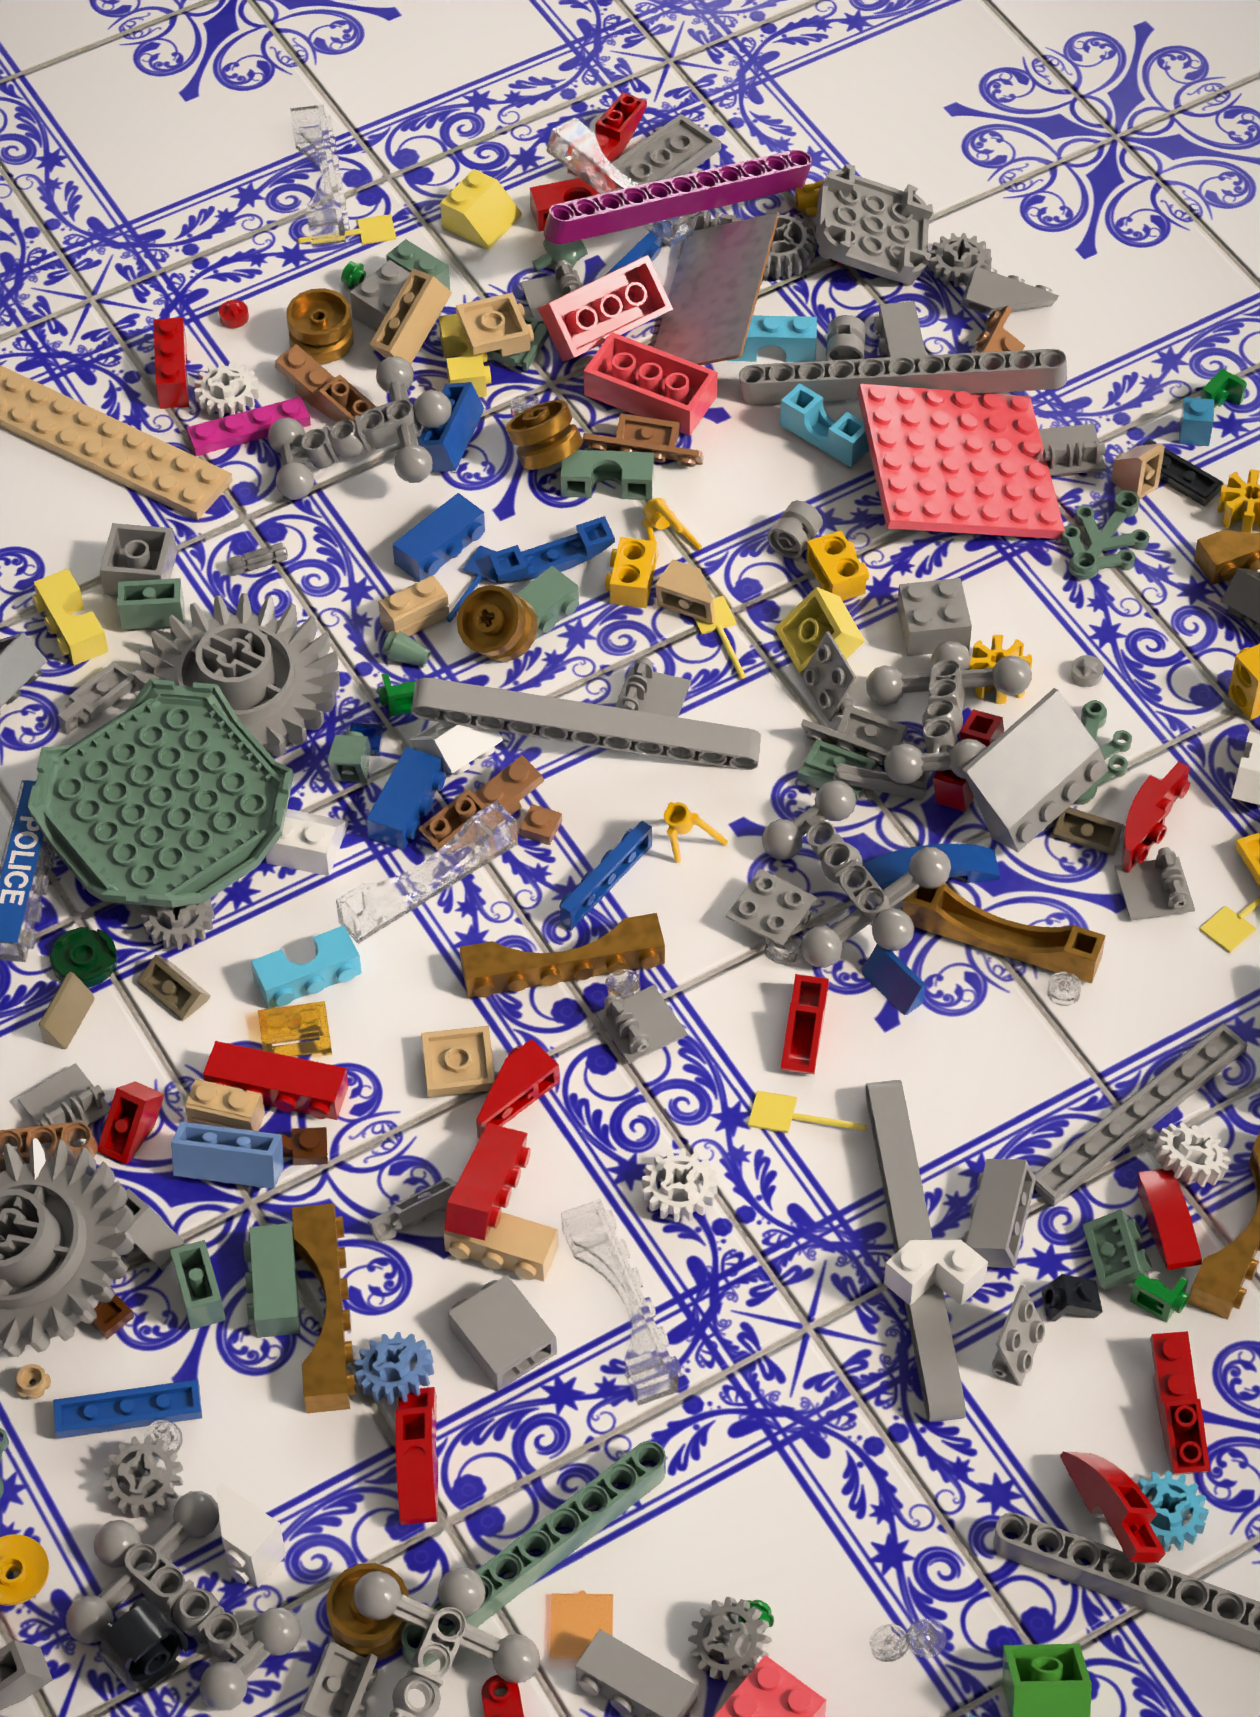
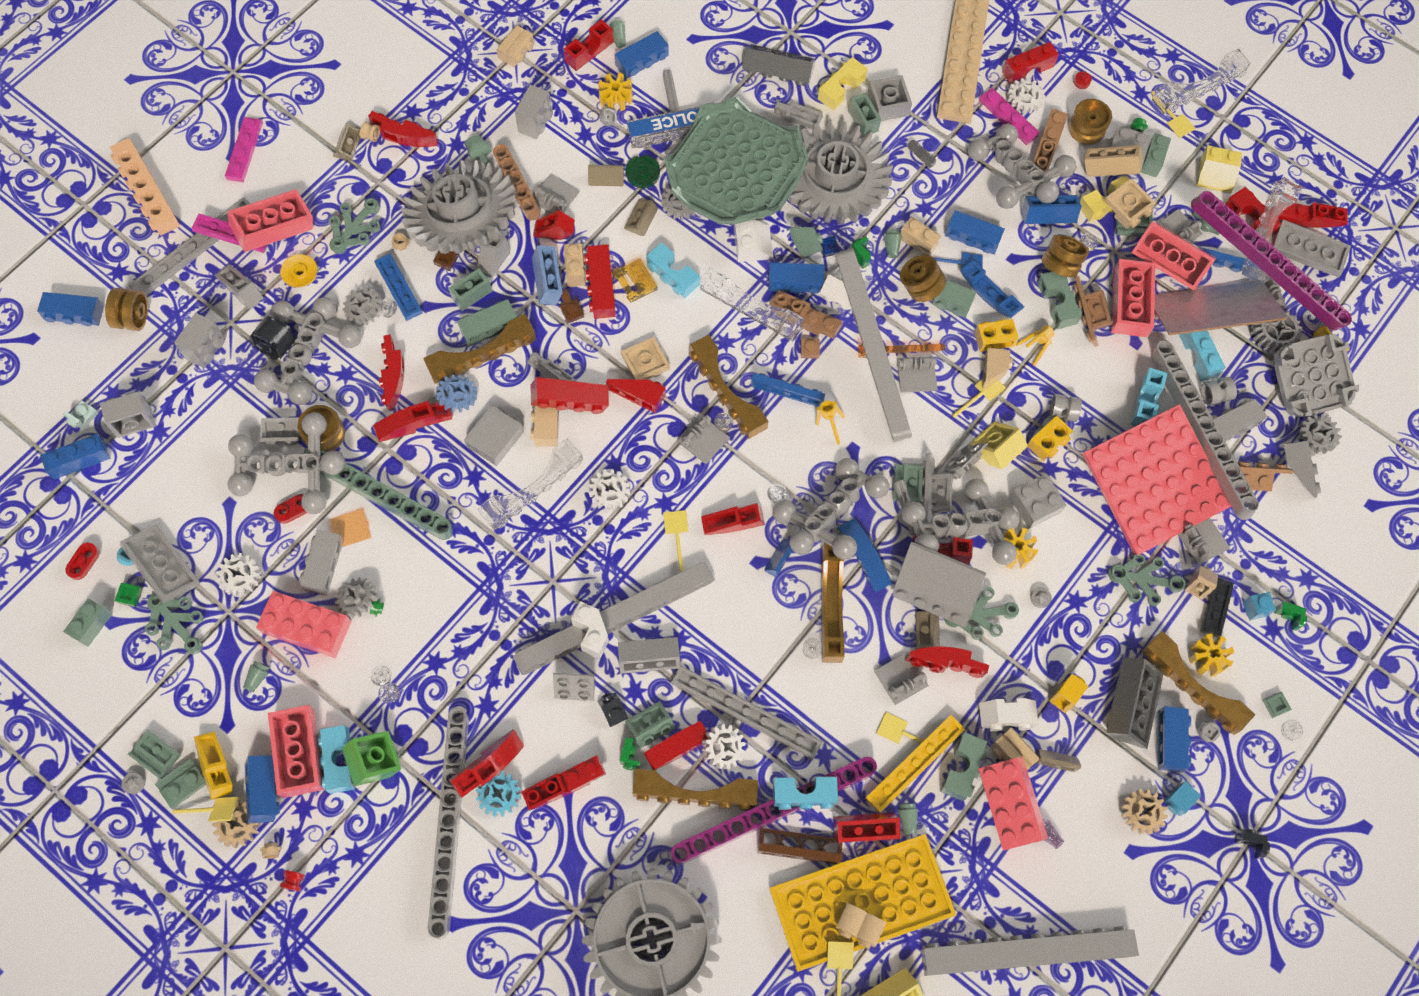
camera: 65 degrees right, 15 degrees up
(249, 1538) = (340, 359): white slope -> none
(315, 1465) = (393, 374): none -> red slope
(581, 754) = (905, 348): none -> clear orange piece
(772, 907) = (798, 478): light grey hinge -> none

